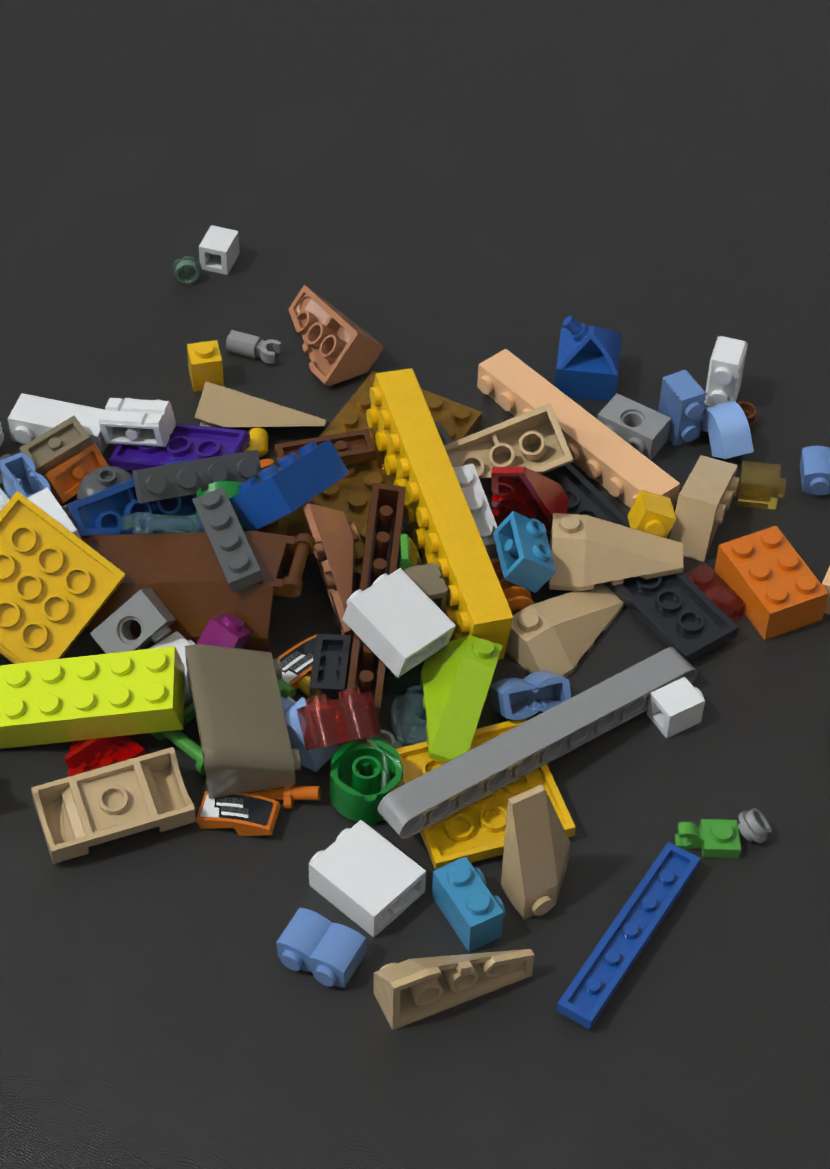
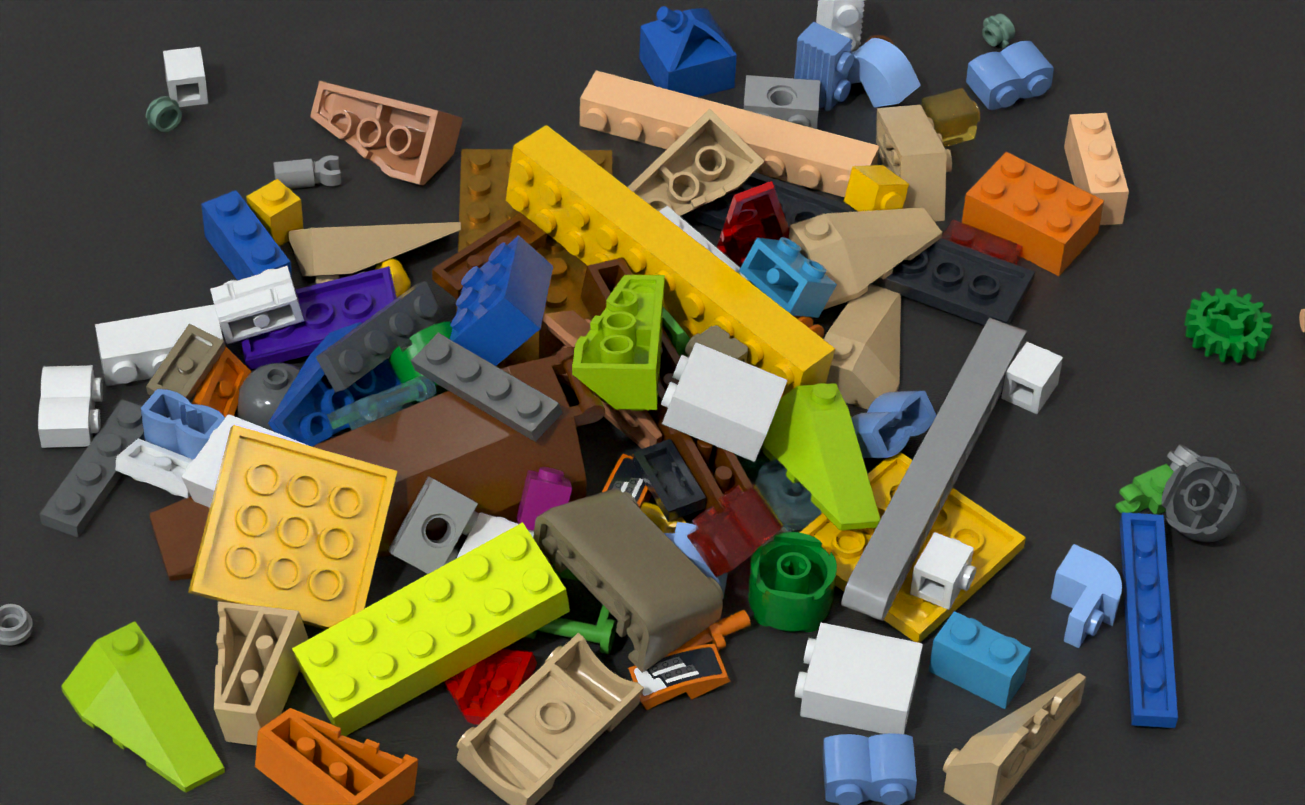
camera: 30 degrees left, 0 degrees up
(169, 373) = (240, 237): none -> blue brick
(352, 551) = (623, 347): none -> lime wedge
(480, 821) = (943, 571): none -> white brick
(533, 853) = (1025, 586): tan wedge -> none
(596, 893) = (1090, 588): none -> light blue brick
(738, 861) = (1205, 500): none -> dark grey cylinder

